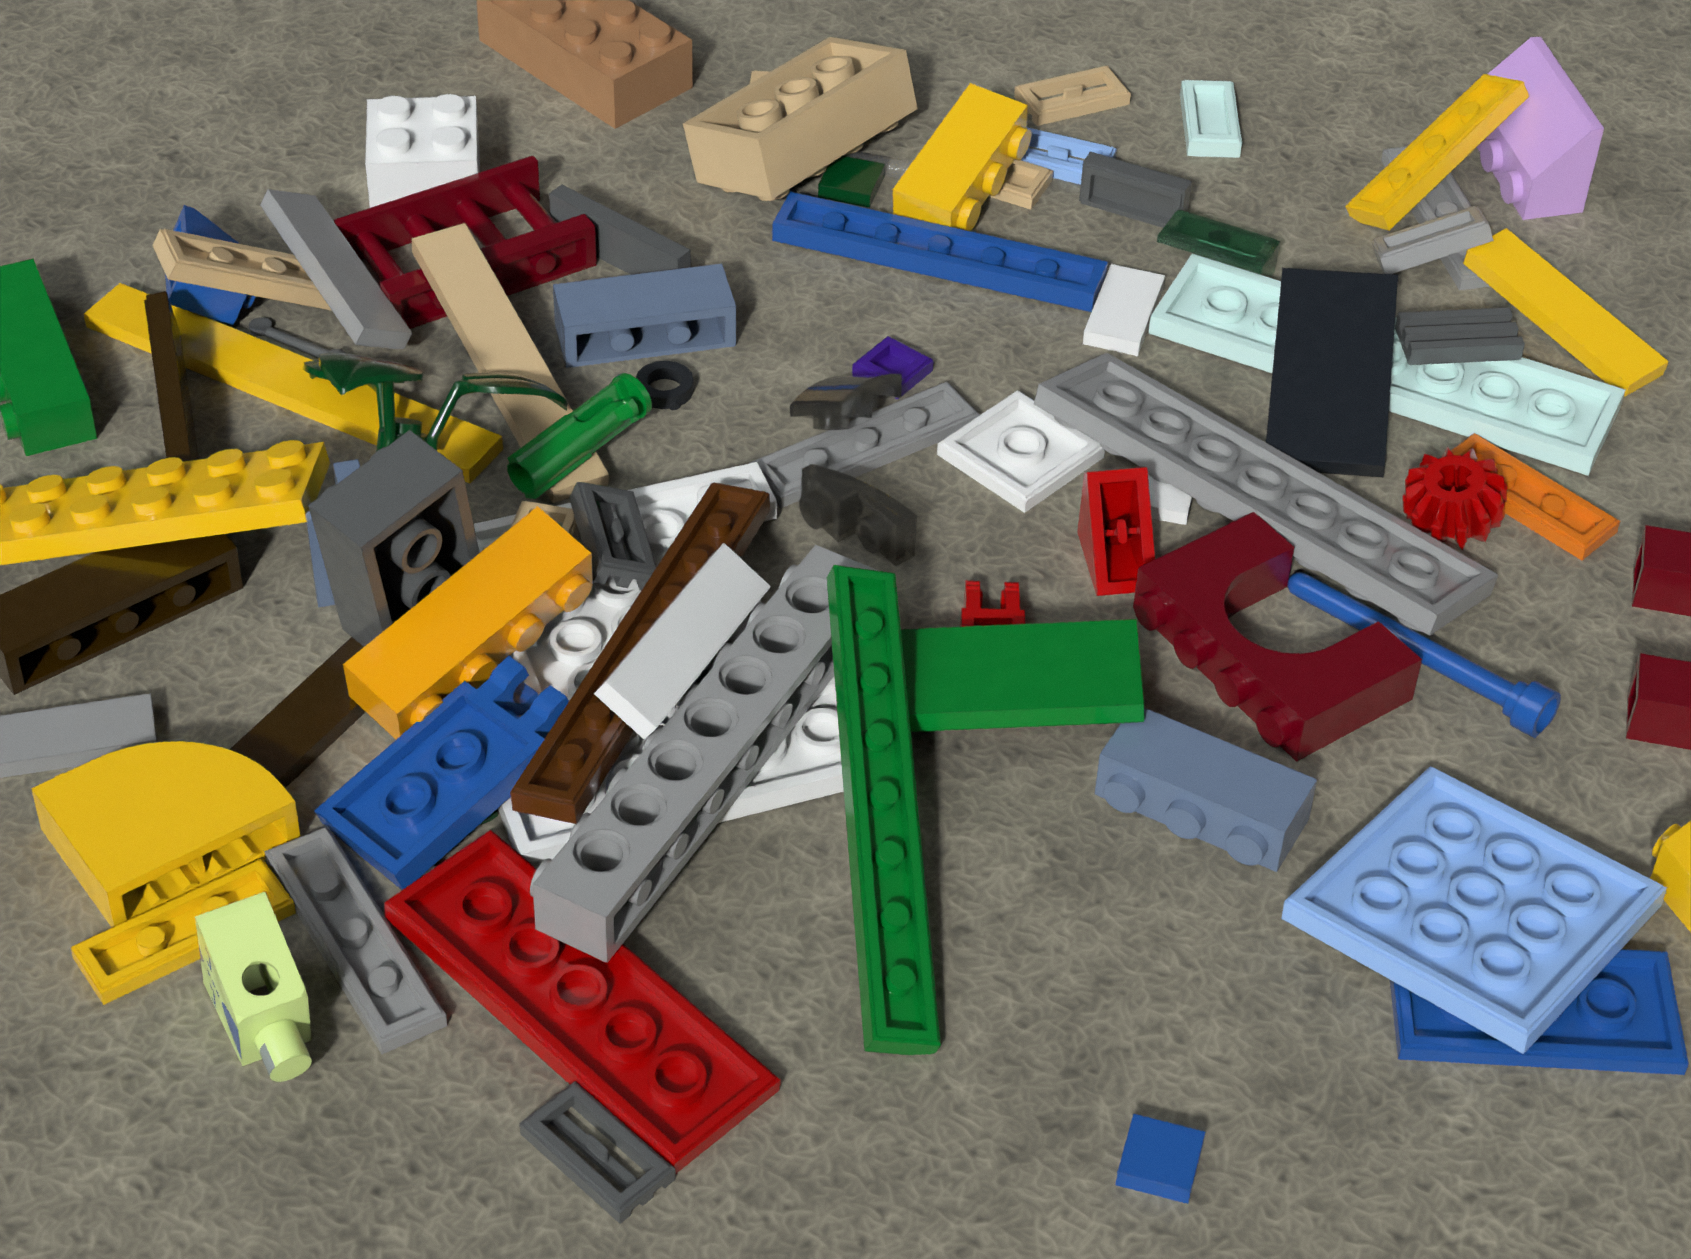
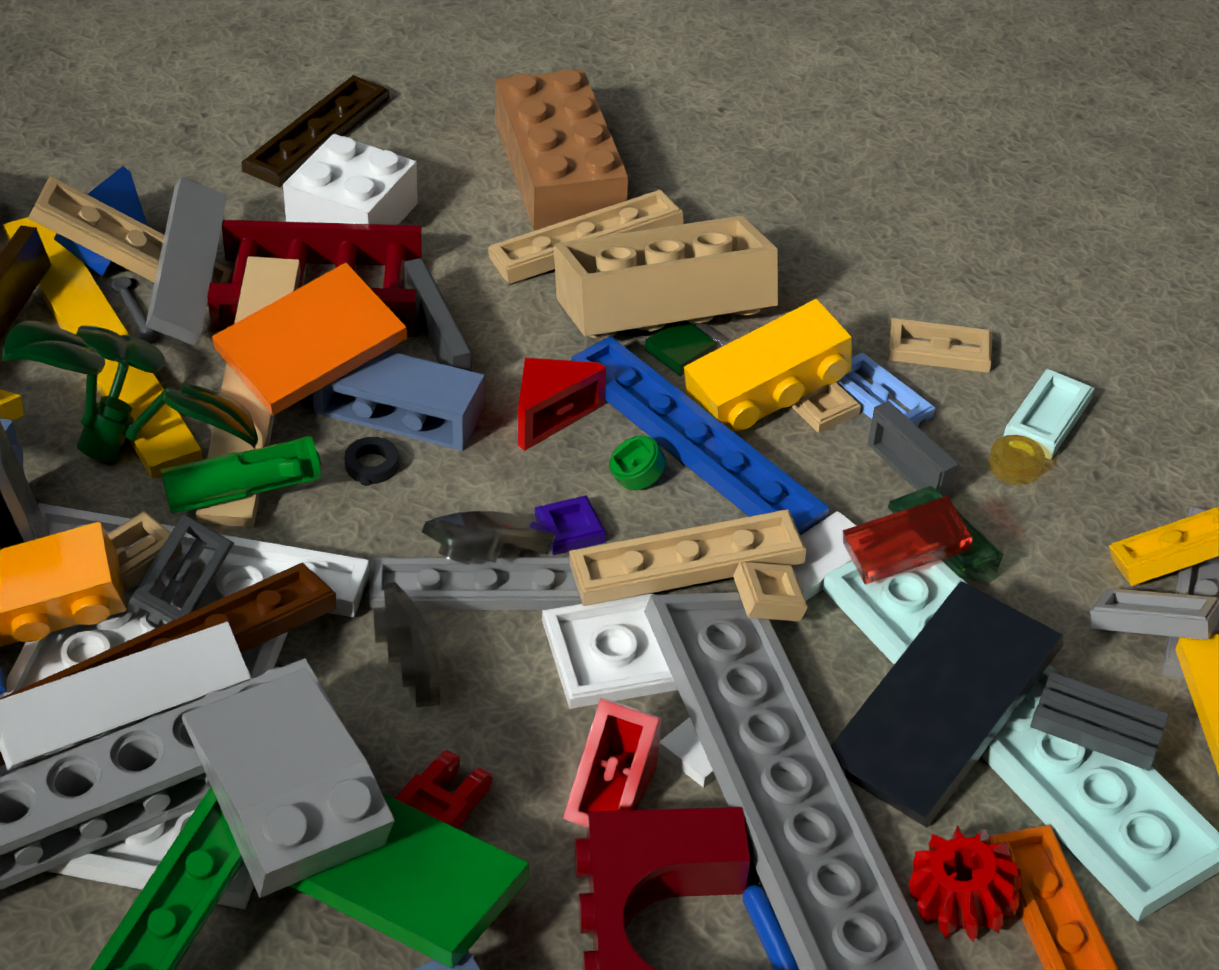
camera: 30 degrees right, 0 degrees up
(311, 111) = (301, 139): none -> dark brown tile
(540, 289) = (309, 338): none -> orange tile
(660, 129) = (534, 251): none -> tan tile
(785, 262) = (557, 396): none -> red slope
(908, 291) = (637, 462): none -> green tile
(911, 629) = (288, 780): none -> light grey slope
(1027, 348) = (684, 557): none -> tan tile
(1122, 345) = (770, 591): none -> tan tile
(1202, 257) = (906, 540): none -> clear red tile
(1216, 166) = (1016, 459): none -> clear yellow tile

